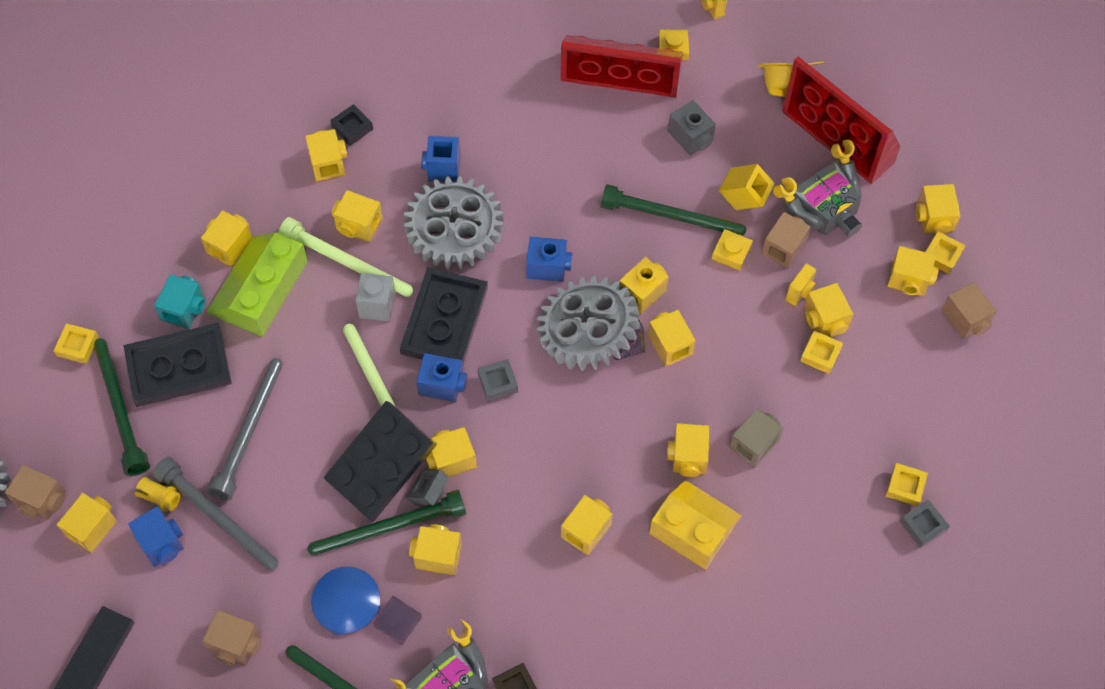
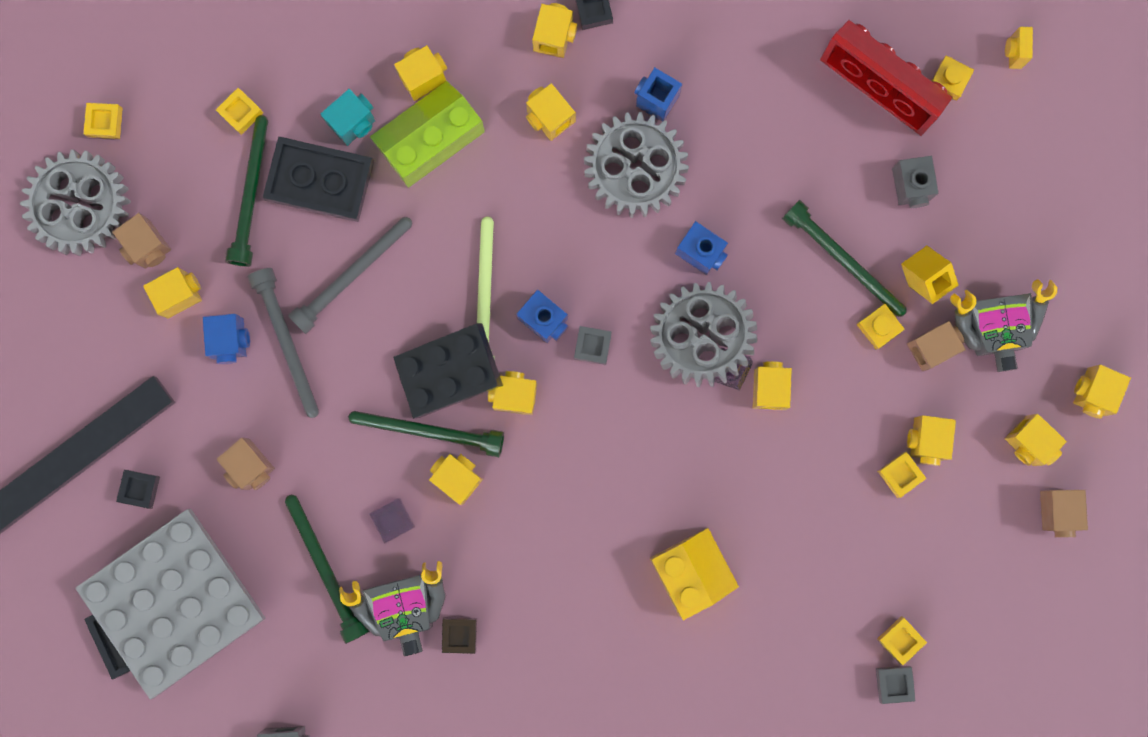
camera: 30 degrees right, 20 degrees up
(158, 494) = (245, 297): yellow pin -> none
(293, 229) = (483, 96): yellowish green piece -> none
(345, 600) = (358, 479): blue dish -> none
(375, 297) = (524, 205): light grey brick -> none
(428, 487) = (477, 416): dark grey plate -> none
(444, 315) = (577, 257): black plate -> none
(587, 524) = (597, 527): yellow brick -> none
(646, 283) = (777, 321): yellow brick -> none
(689, 449) = (726, 505): yellow brick -> none
(756, 437) = (794, 525): dark tan brick -> none
(778, 76) = (1041, 175): yellow piece -> none
(801, 285) = (923, 401): yellow plate -> none
(835, 117) = (1059, 253): red slope -> none
(946, 251) = (1080, 437): yellow plate -> none

